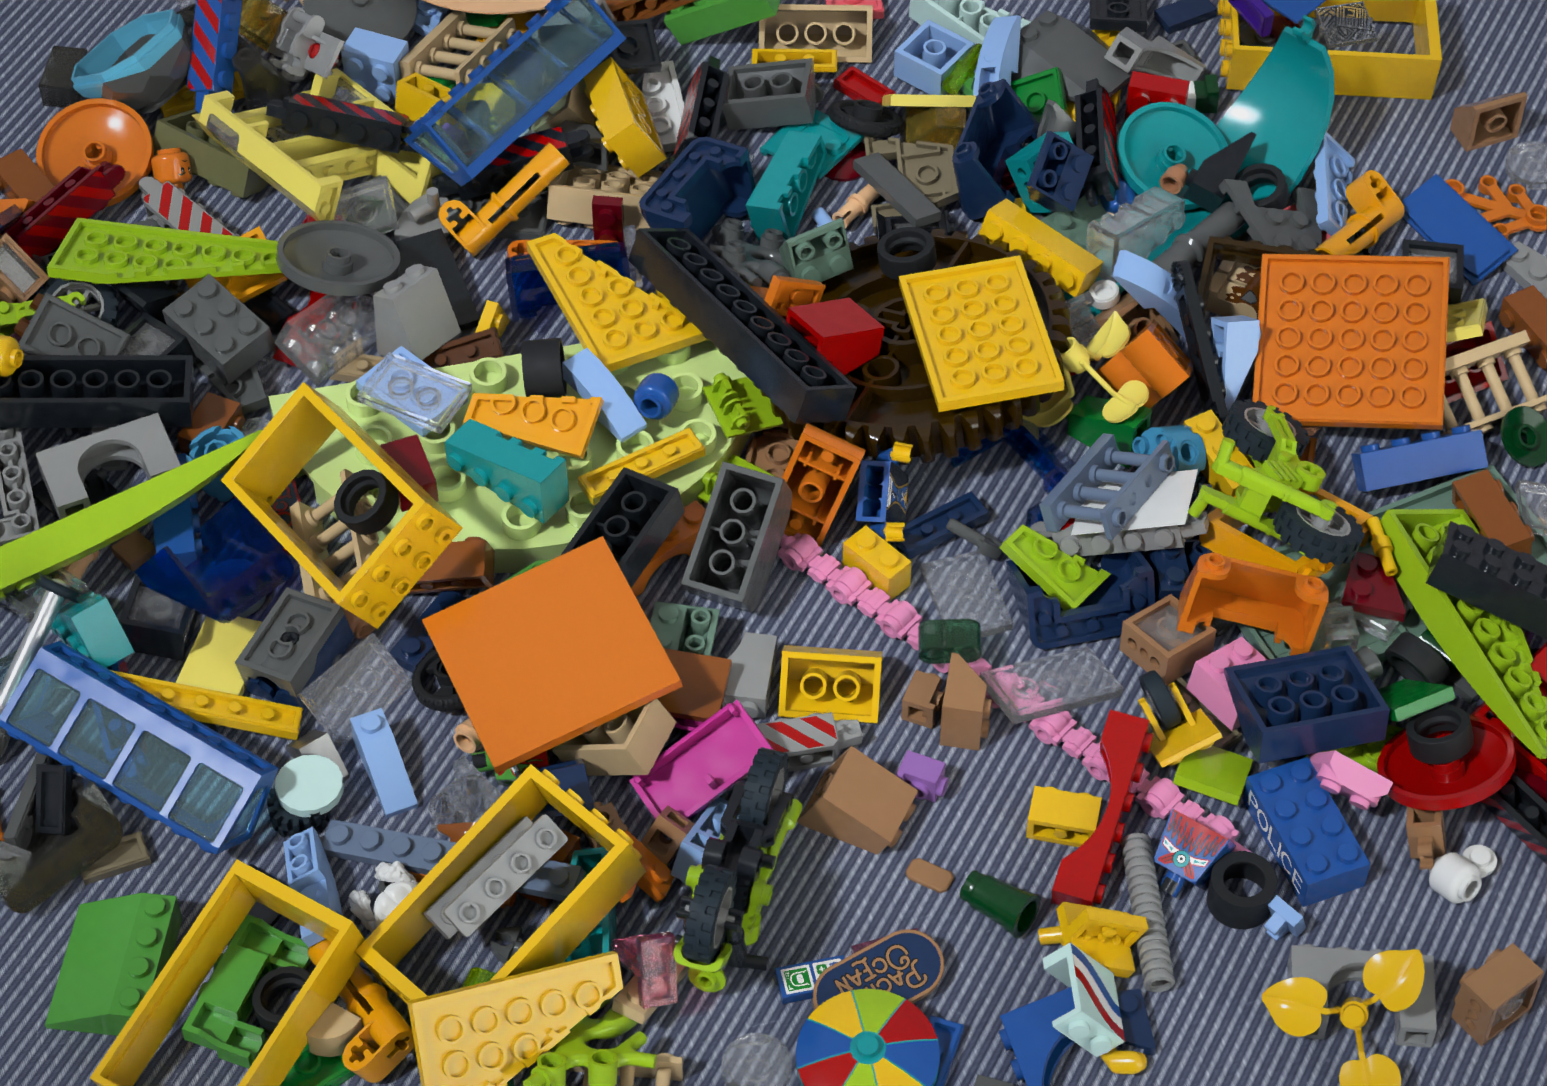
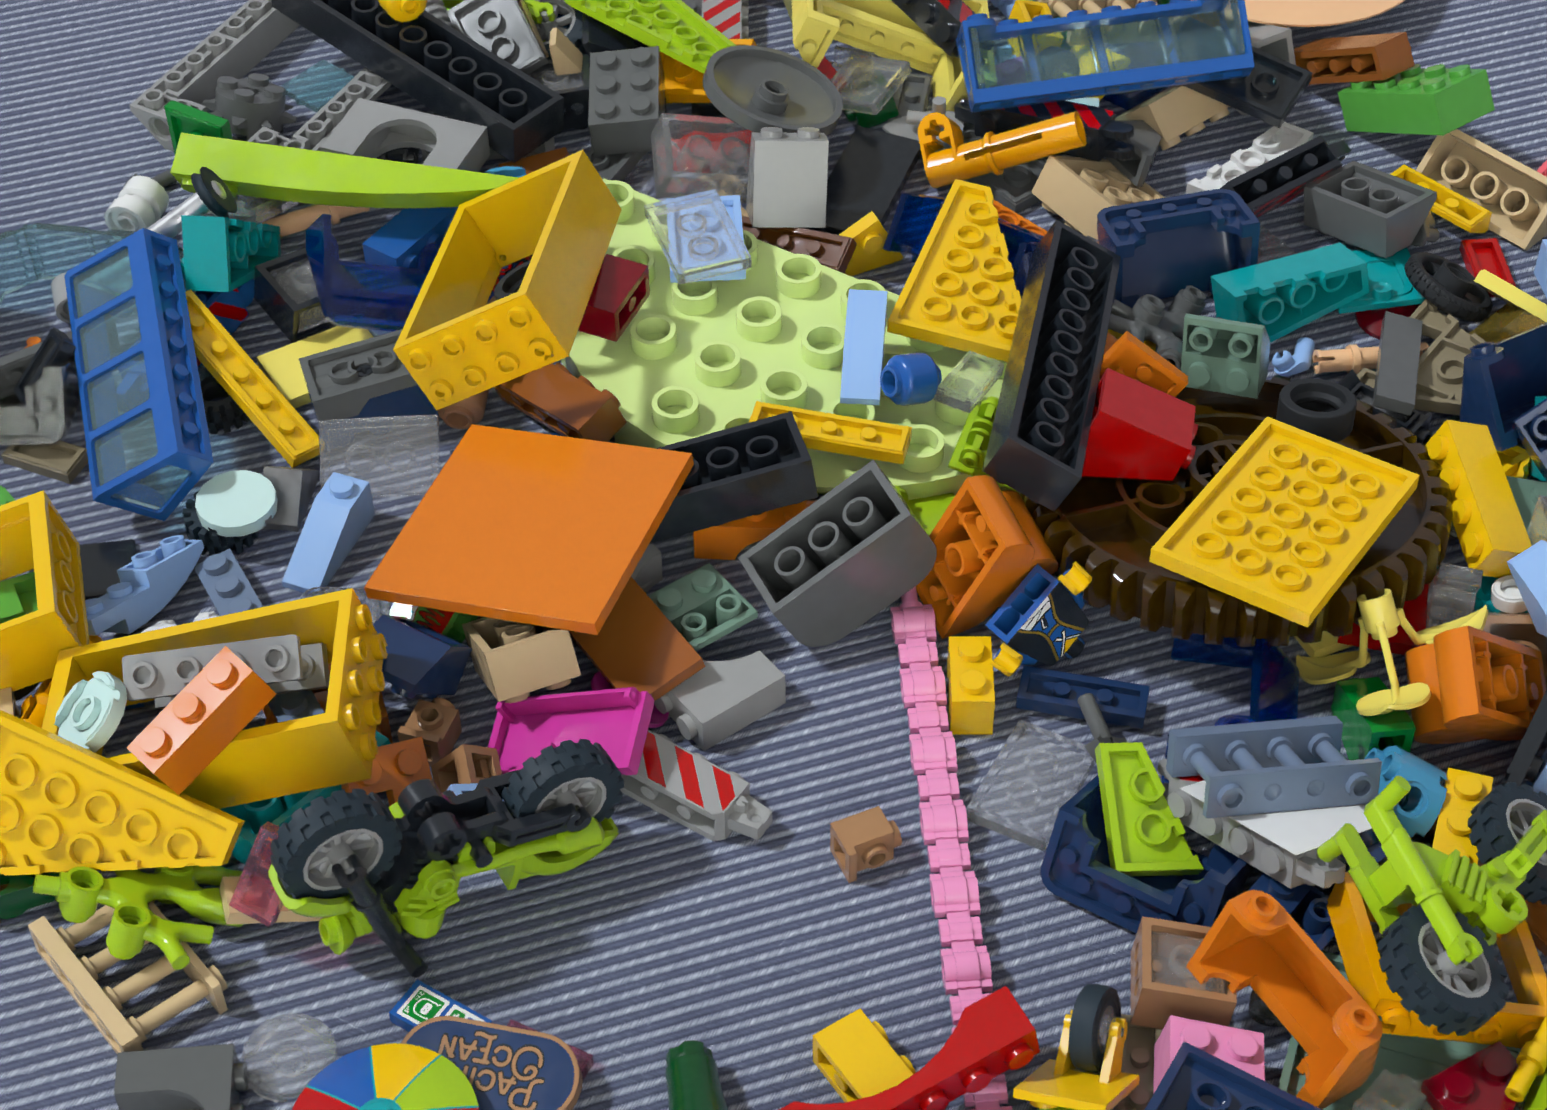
camera: 45 degrees right, 5 degrees down
(134, 550) = (361, 231): medium nougat tile -> none
(136, 324) = (564, 54): none -> tan slope
(449, 961) = (92, 711): none -> light aqua tile
(509, 469) = (699, 354): teal wedge -> none
(541, 421) = (779, 330): light orange wing -> none
(543, 367) = (824, 283): black piece -> none
(550, 906) = (201, 720): none -> orange brick
(608, 218) = (1079, 210): dark red plate -> none
(623, 118) = (1192, 141): yellow brick -> none
(686, 372) = (969, 381): none -> clear tile
(830, 681) = (793, 760): yellow slope -> none
(859, 803) = (677, 889): medium nougat slope -> none
(924, 774) = (768, 913): medium lavender brick -> none
(929, 875) = (673, 1017): medium nougat piece -> none
(947, 636) = (940, 802): clear green beam -> none
(964, 707) = (878, 874): medium nougat slope -> none
(1051, 684) = (1002, 926): clear tile -> none

